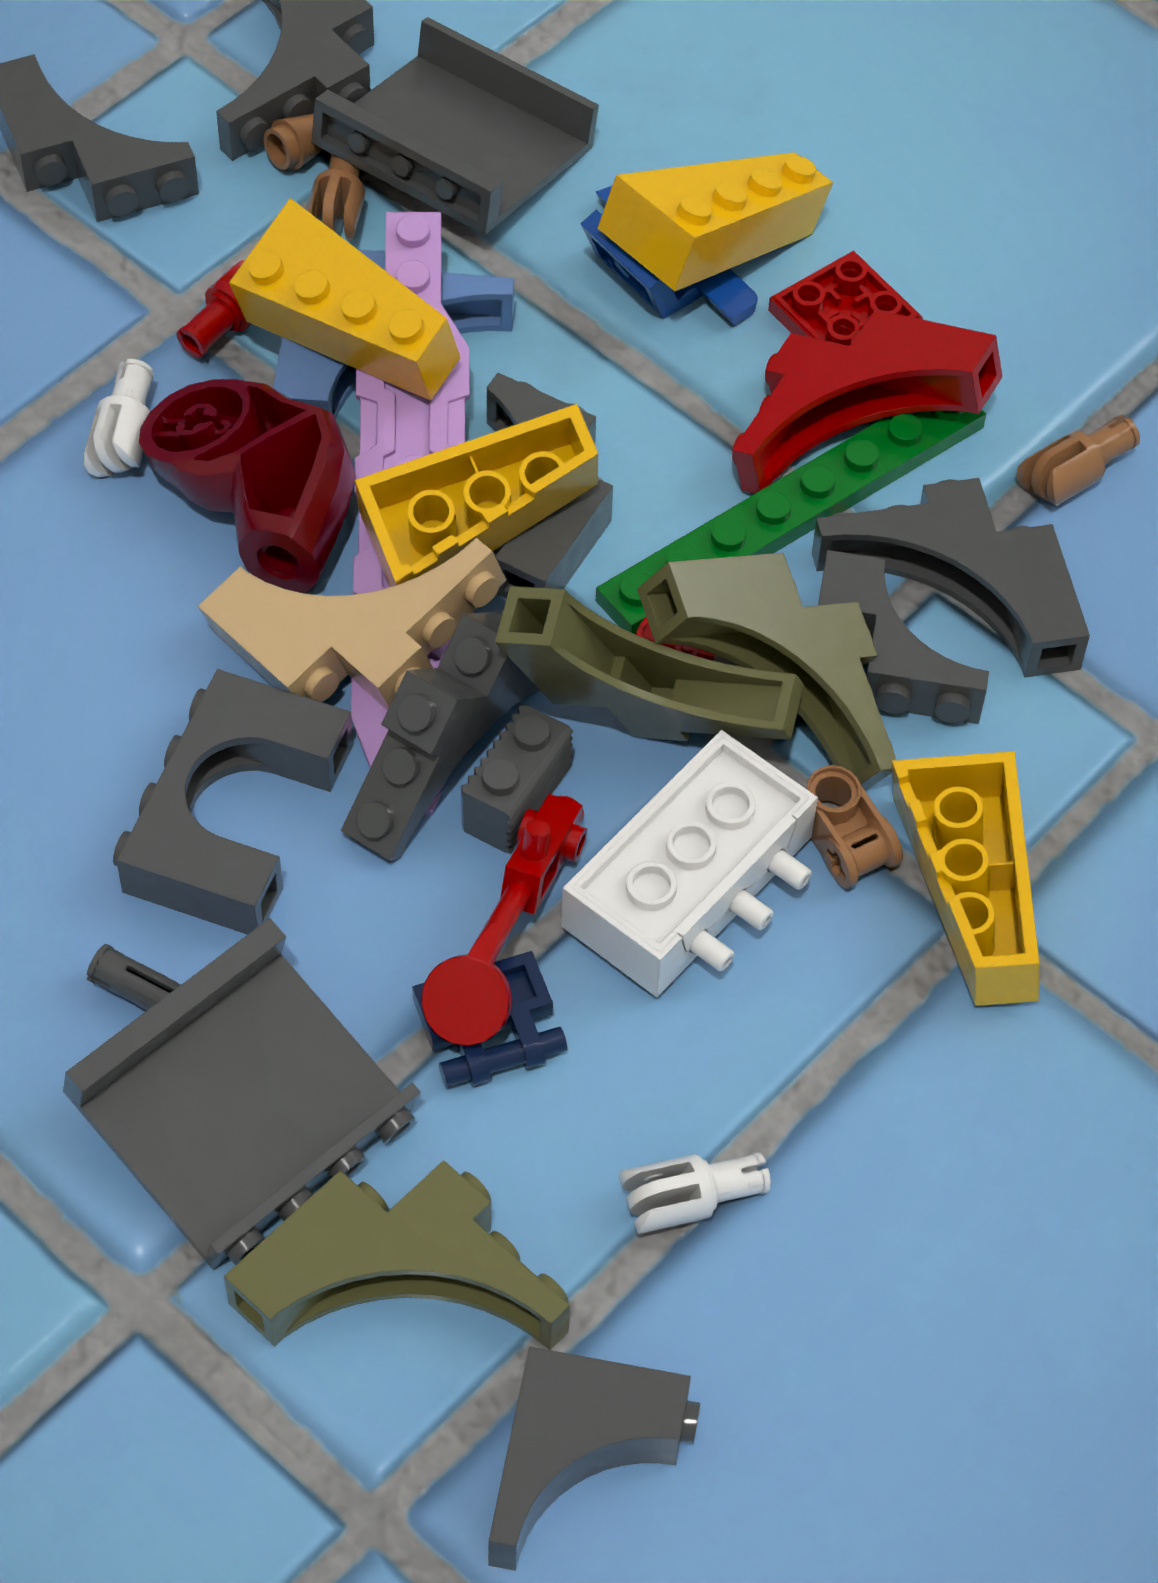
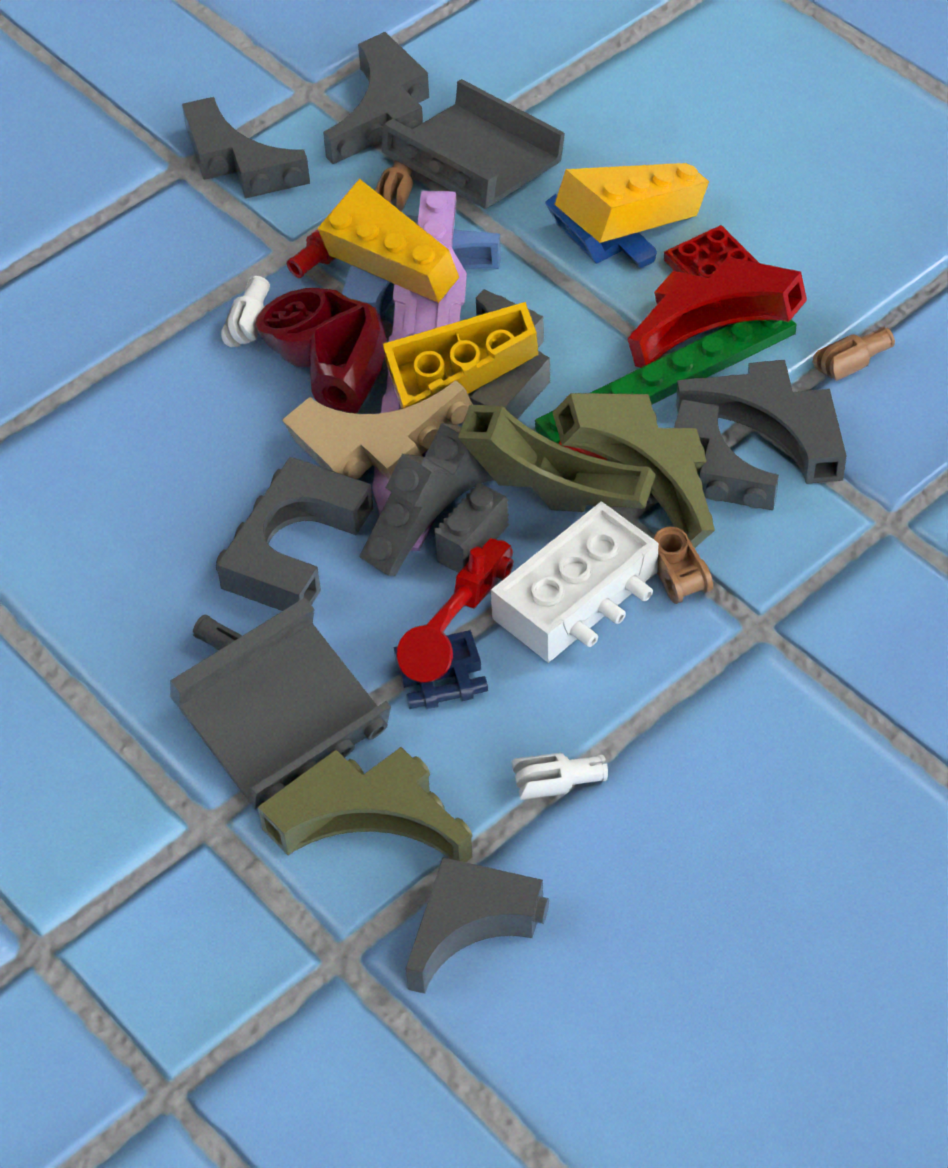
camera: 10 degrees right, 5 degrees down
(290, 143) = (369, 153): medium nougat cone -> none
(973, 856) = (757, 583): yellow wedge -> none

